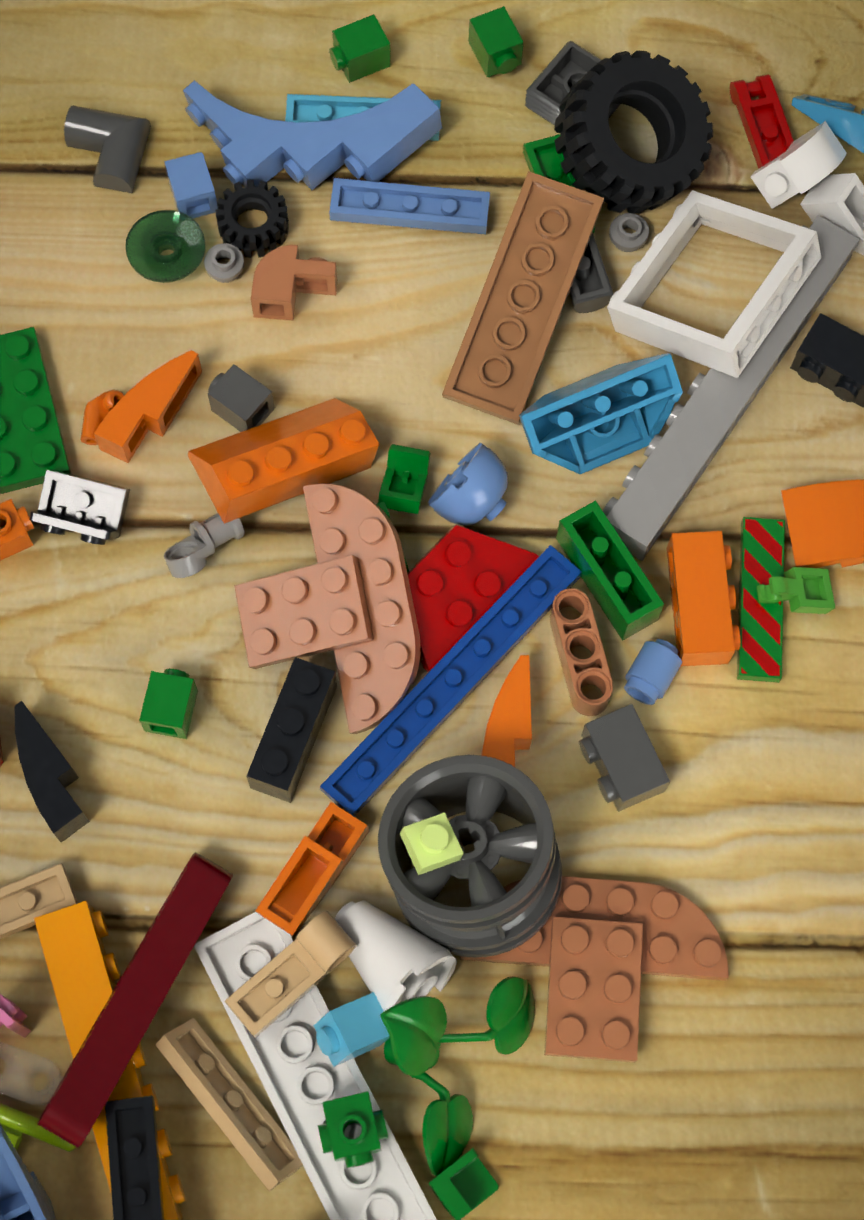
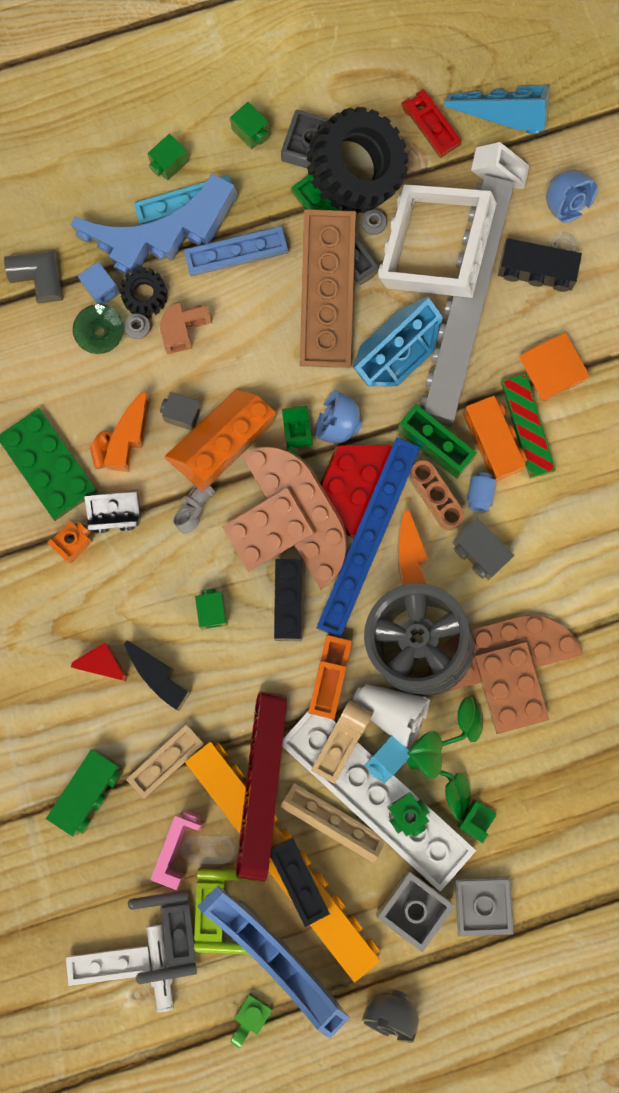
camera: 15 degrees left, 10 degrees up
(431, 843) = (399, 646): yellowish green plate -> none
(801, 166) = (466, 146): white brick -> none
(805, 588) = (552, 412): bright green plate -> none

